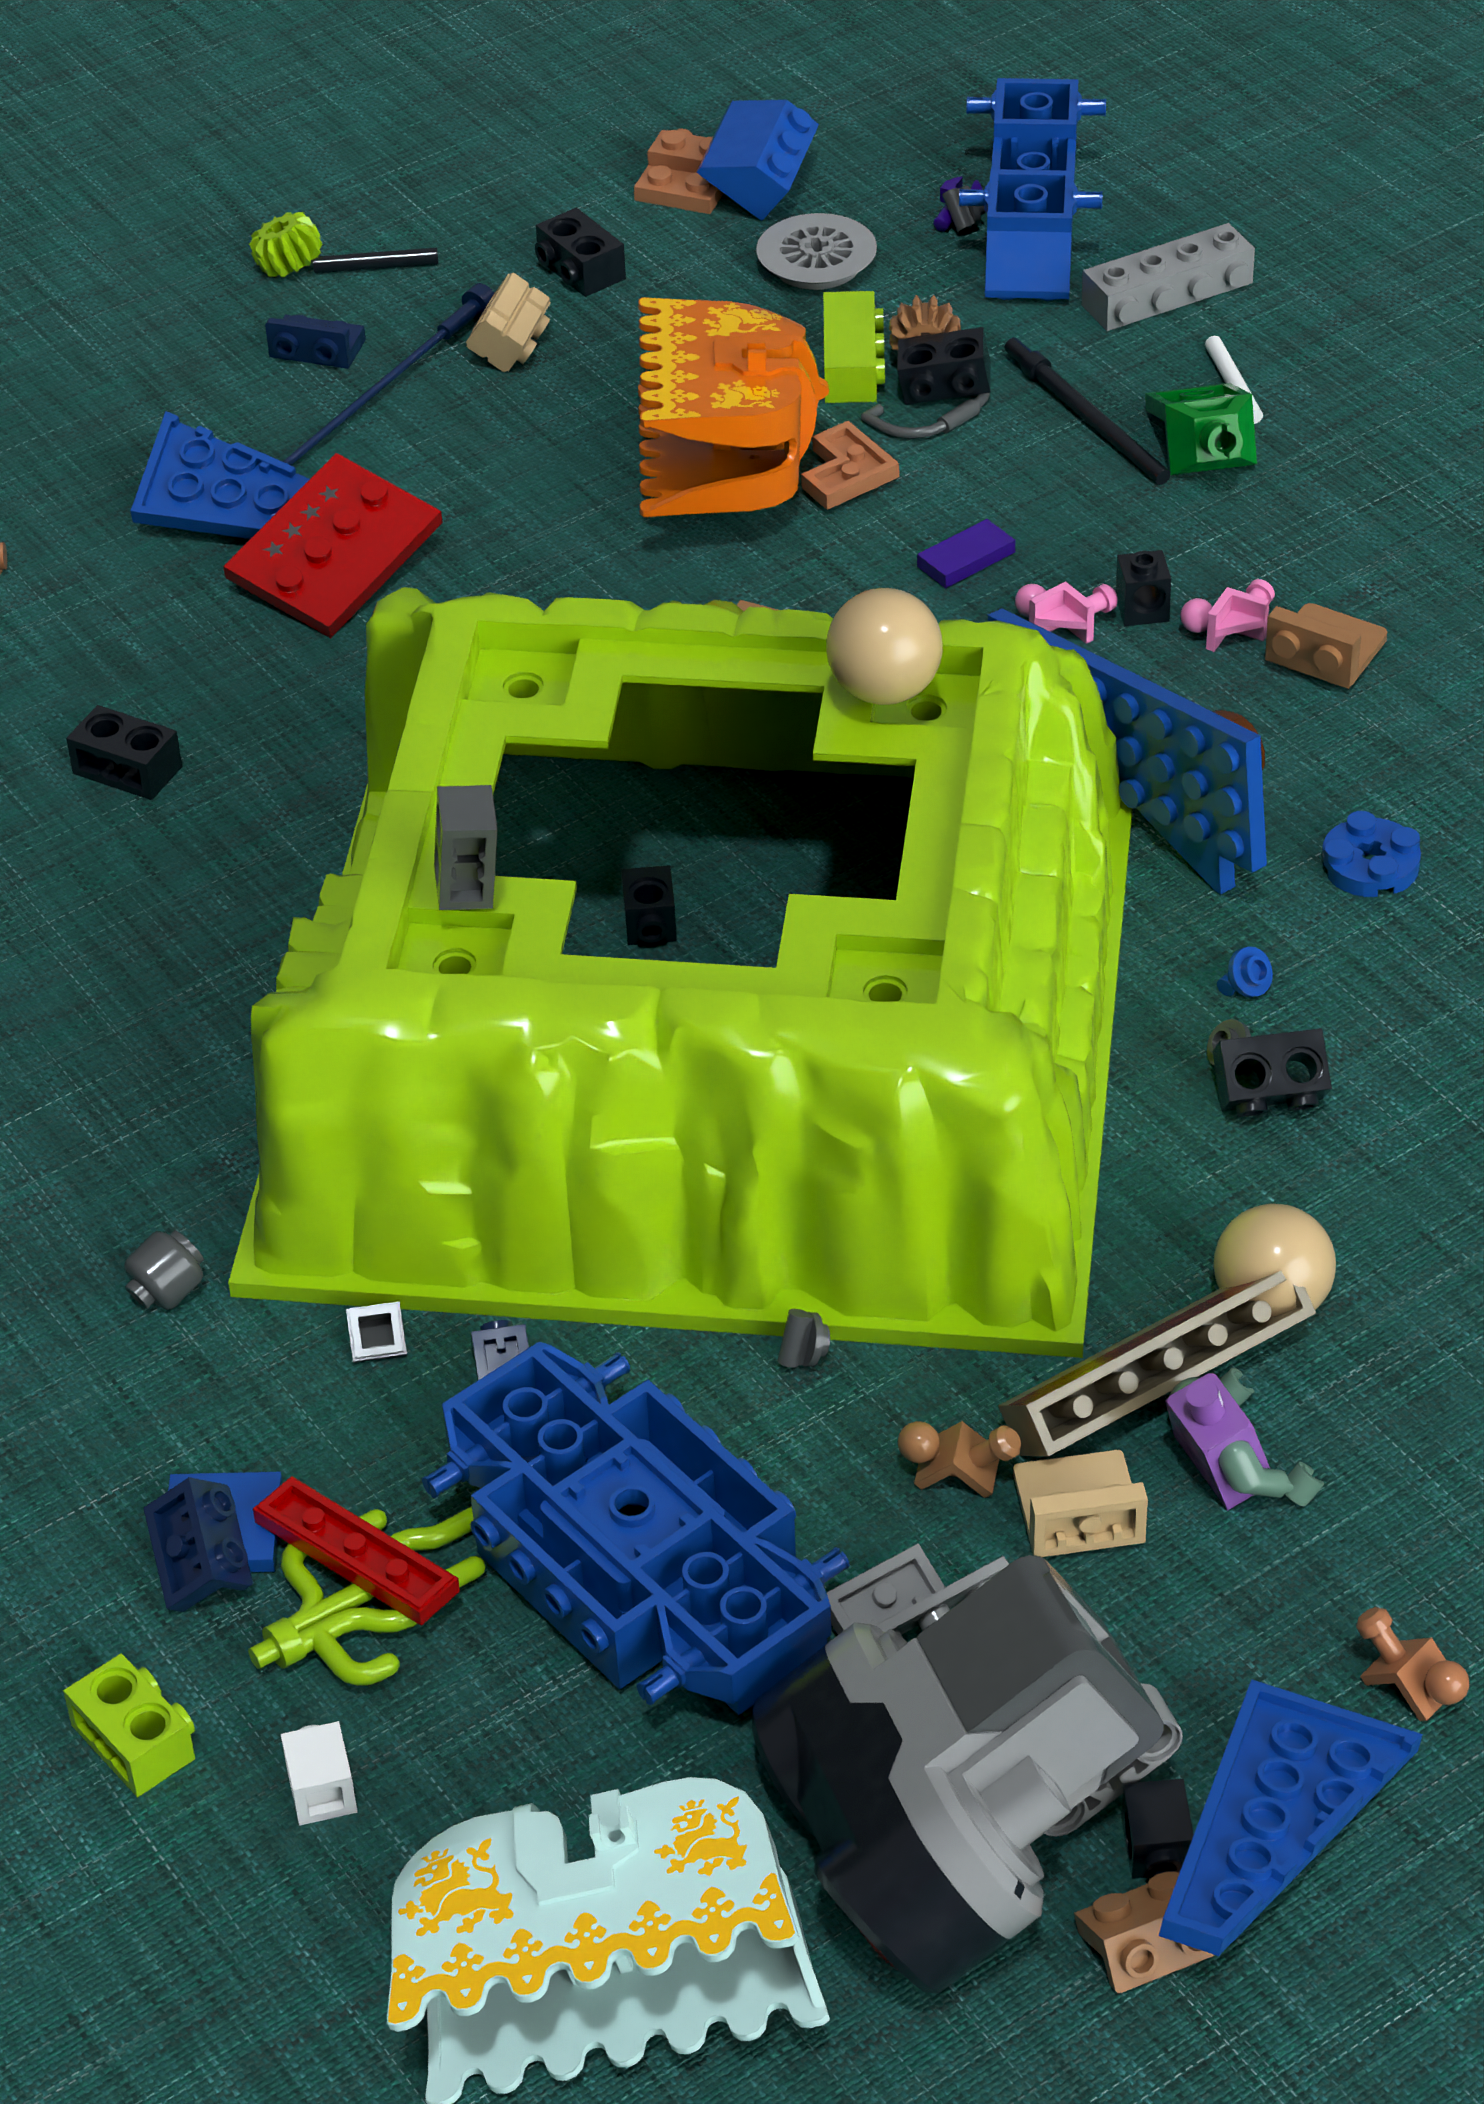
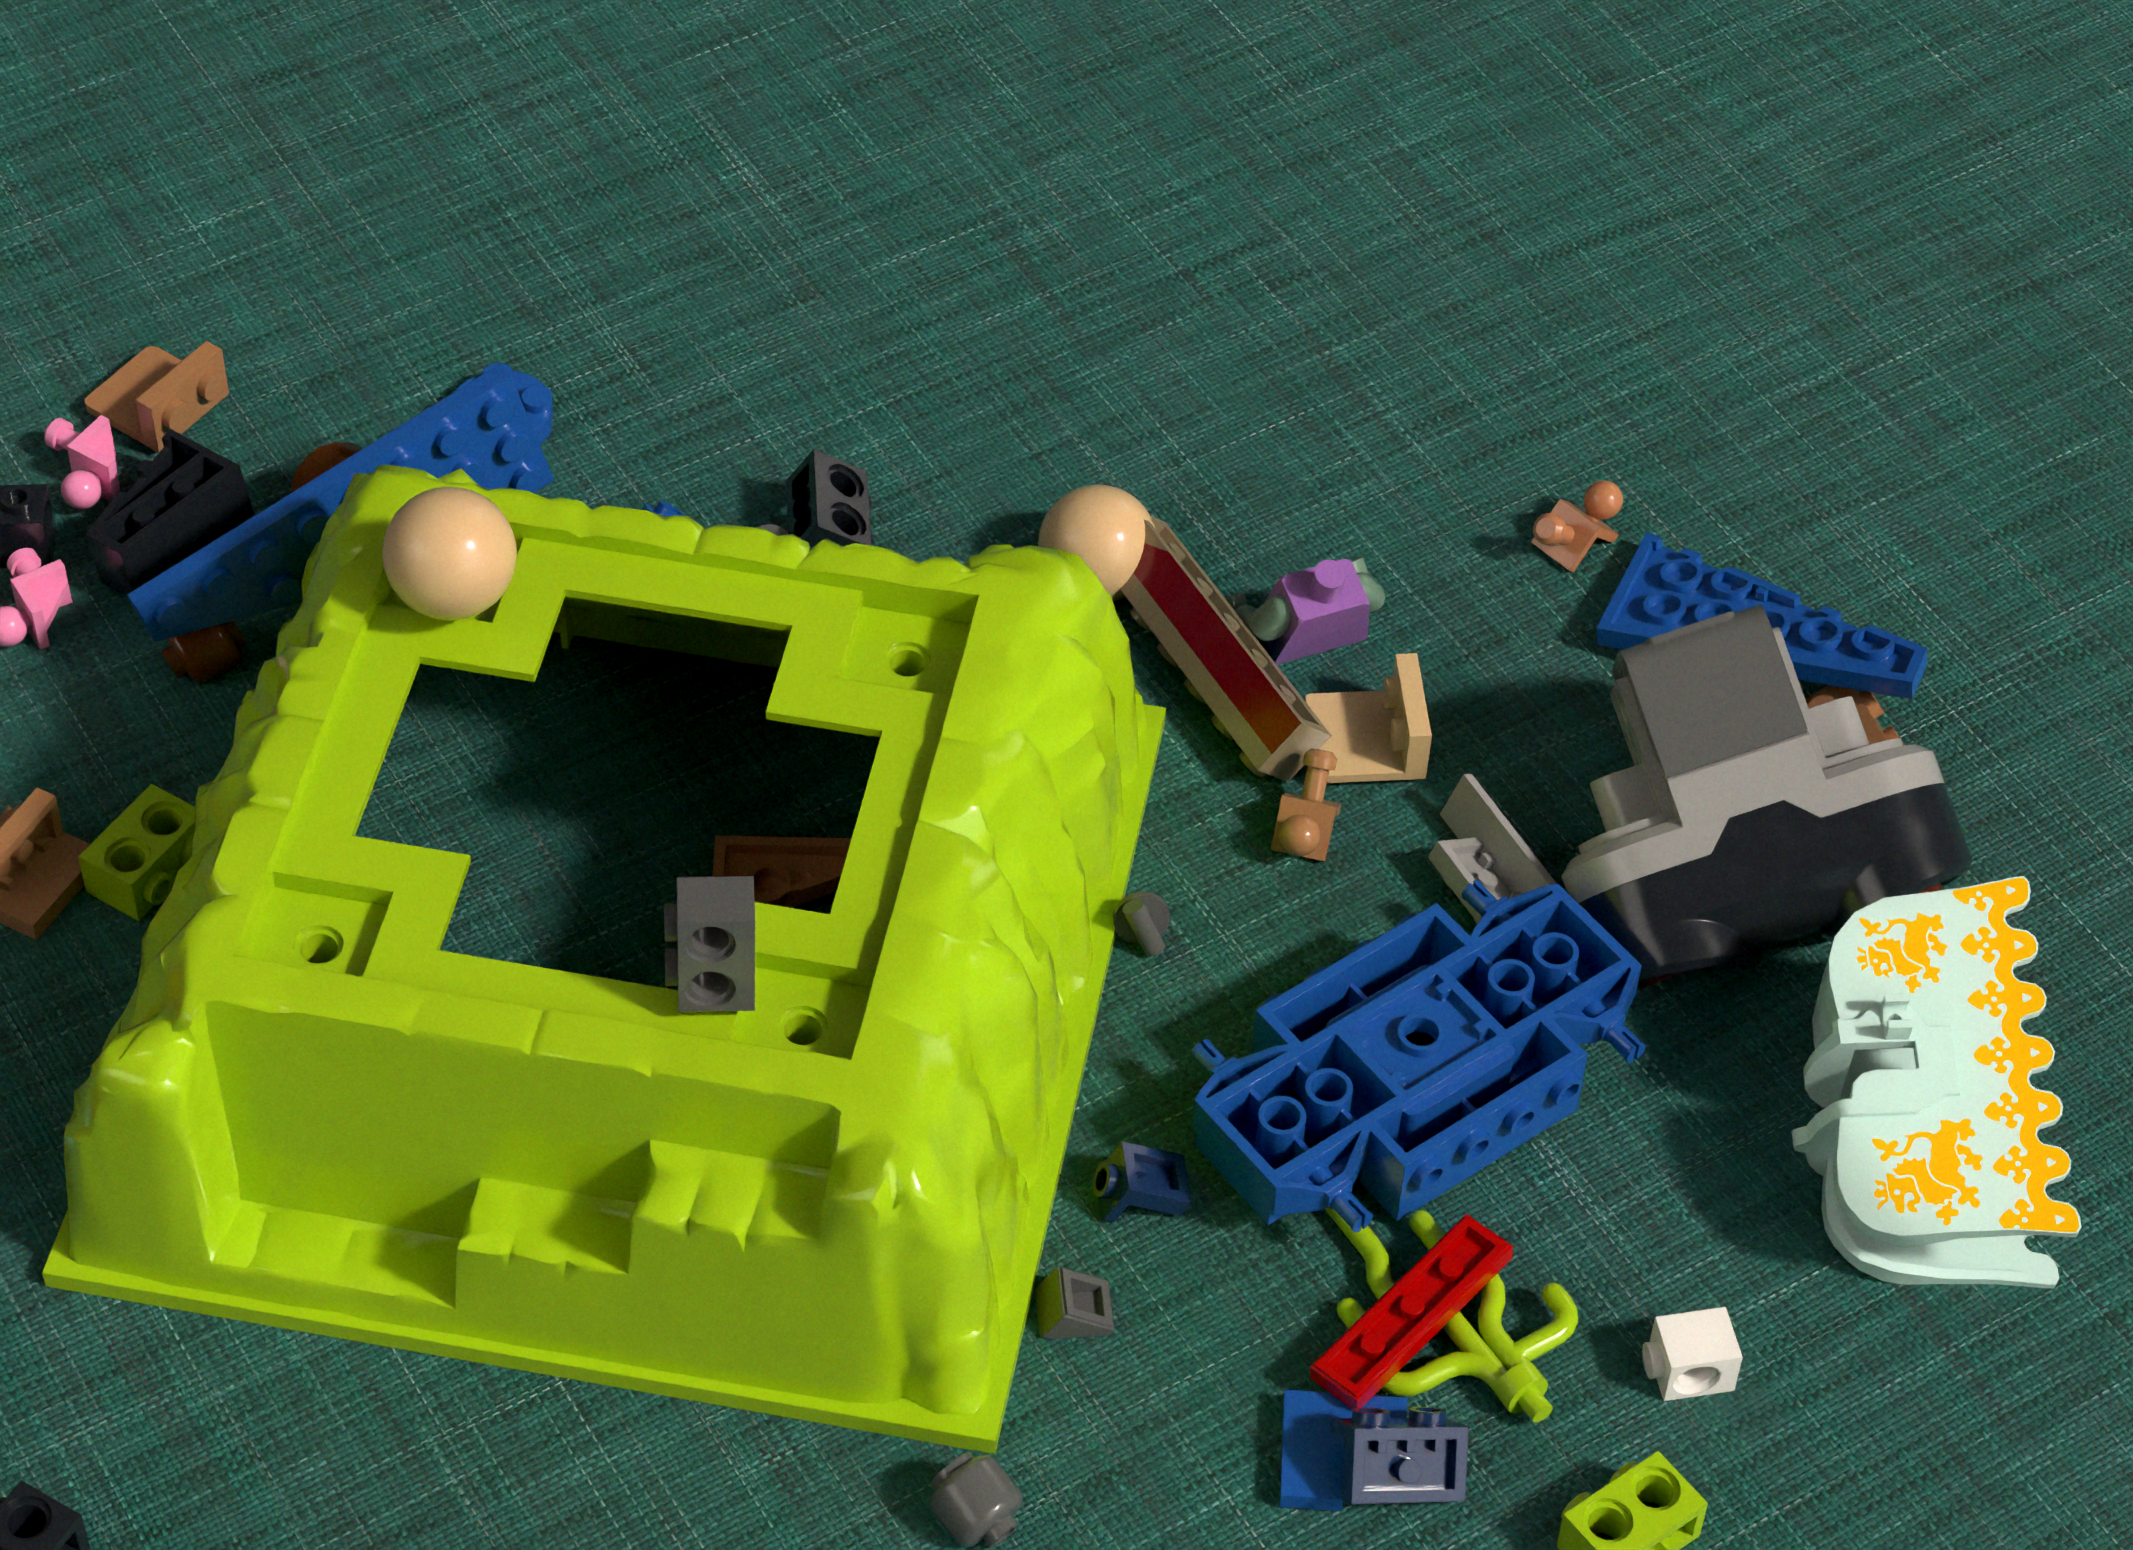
camera: 90 degrees left, 5 degrees up
(1182, 660) = (168, 514): none -> black wedge

